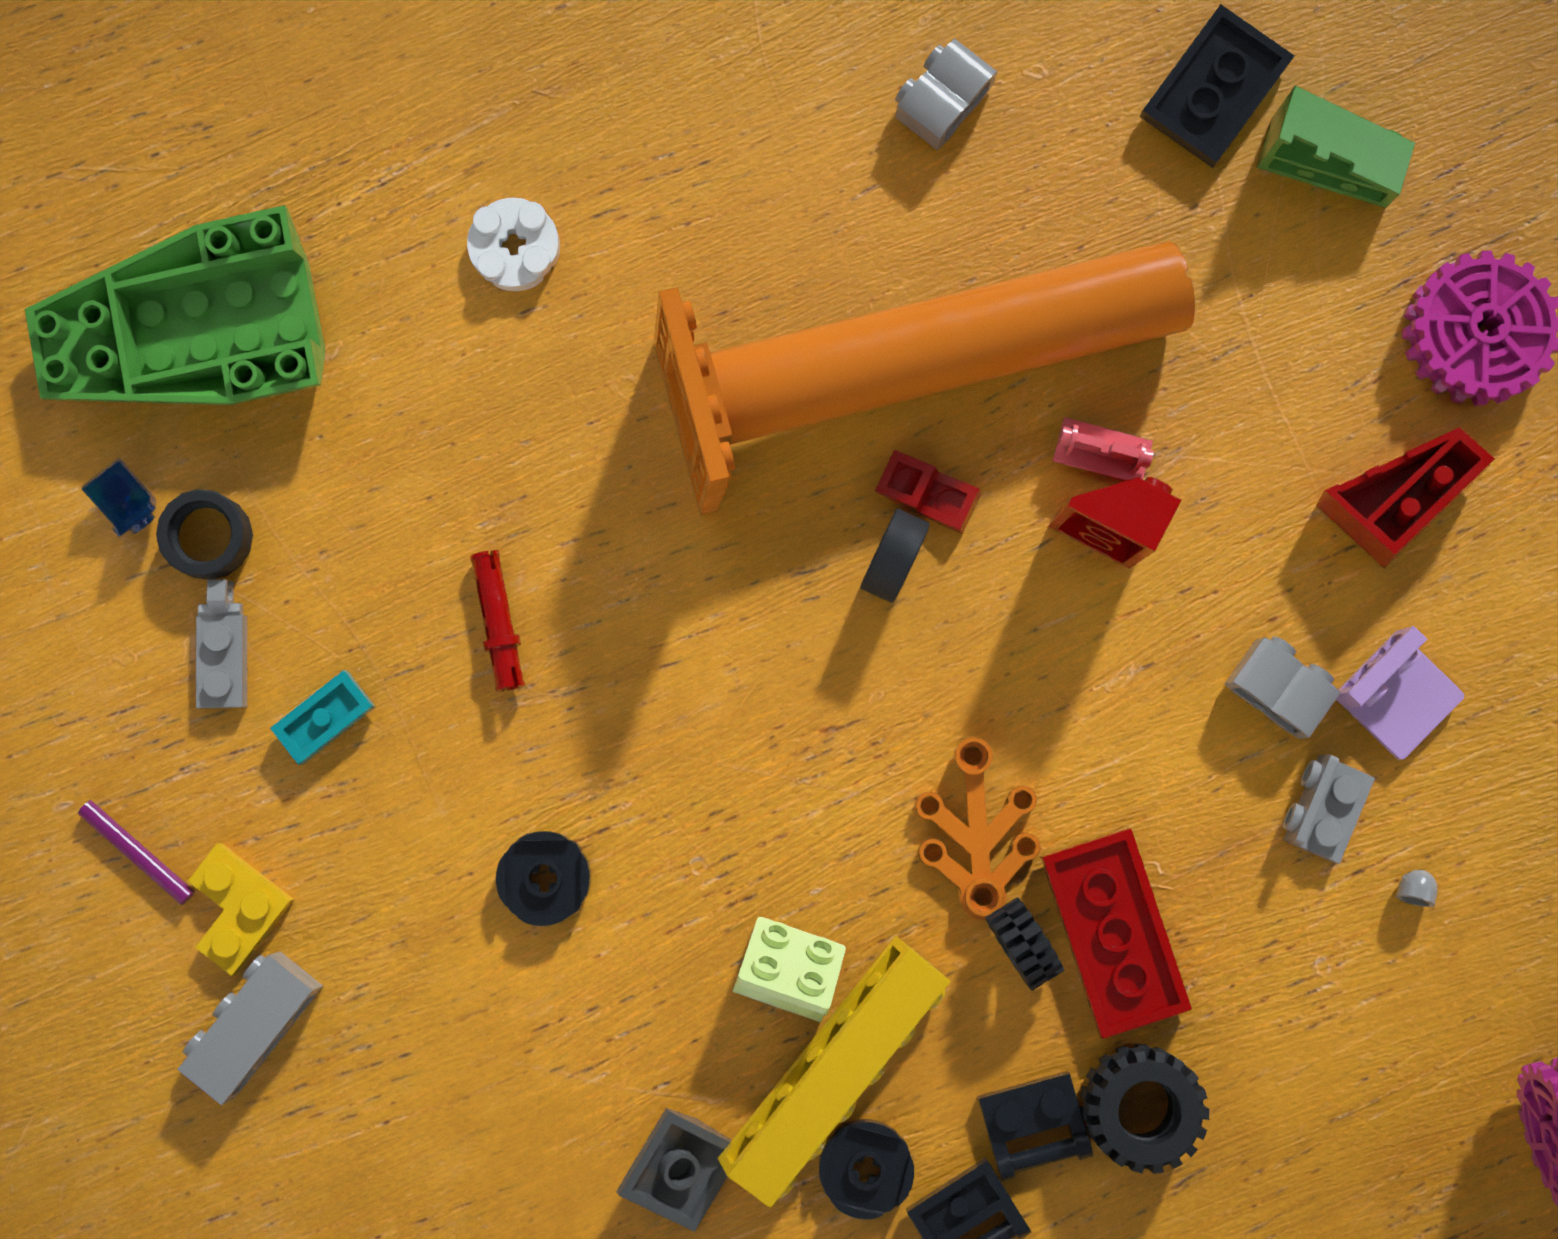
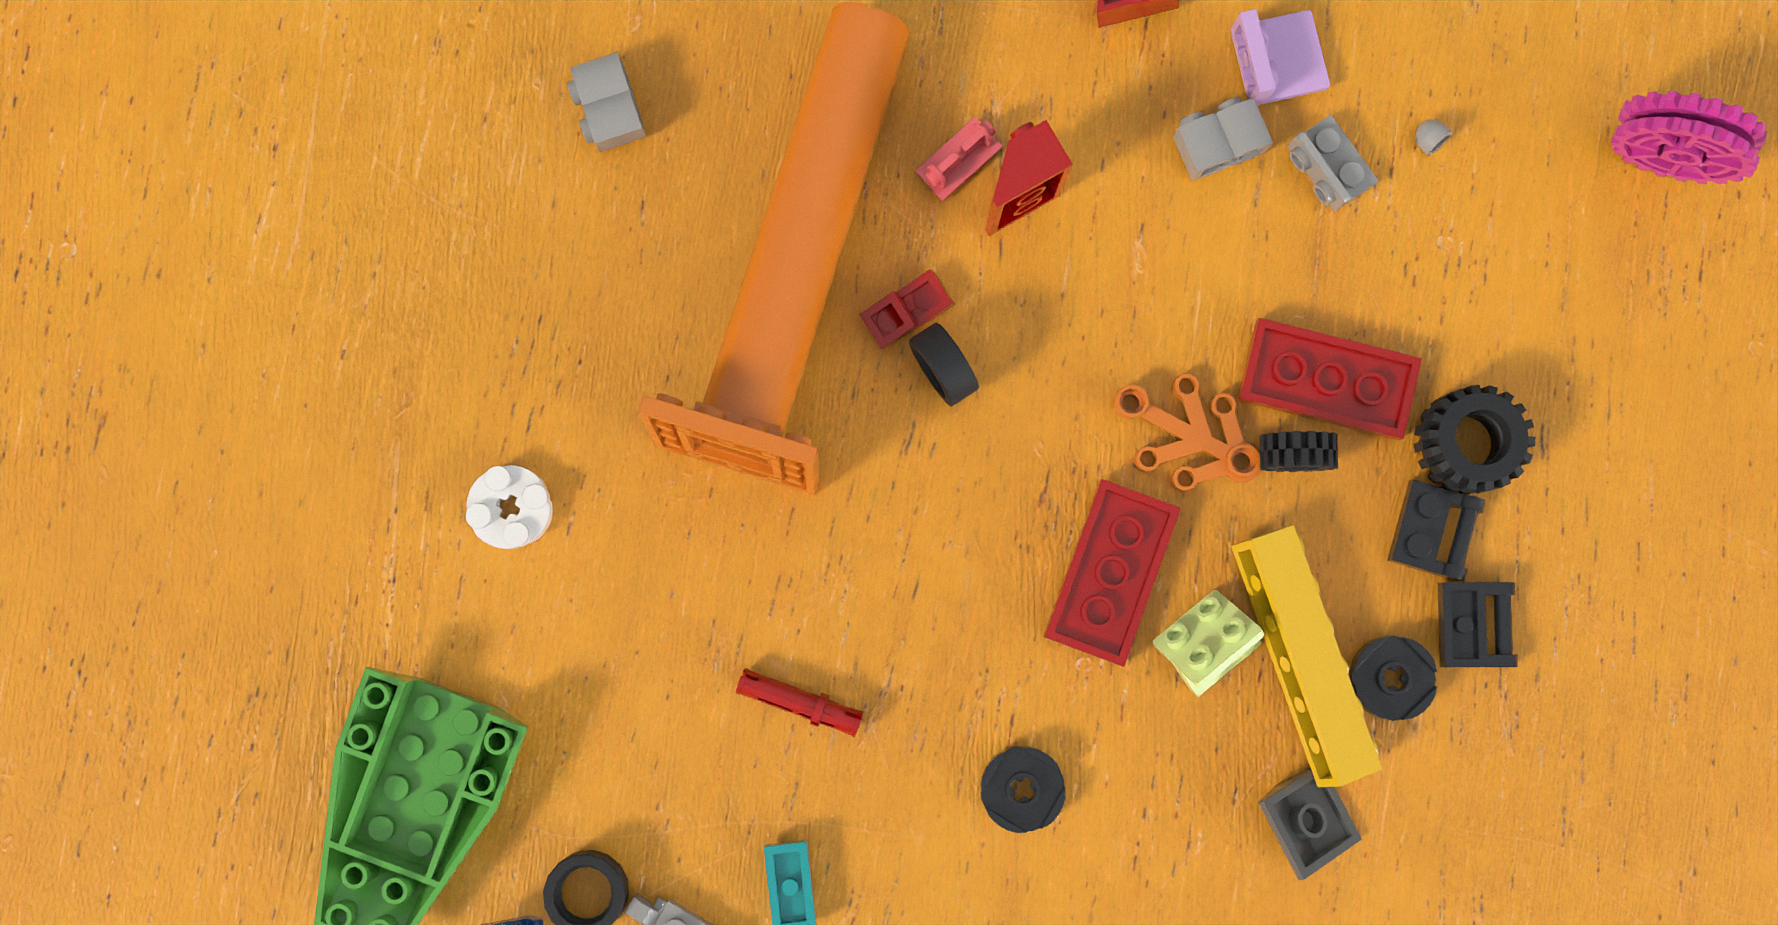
camera: 60 degrees left, 0 degrees up
(799, 837) = (1112, 572): none -> red plate

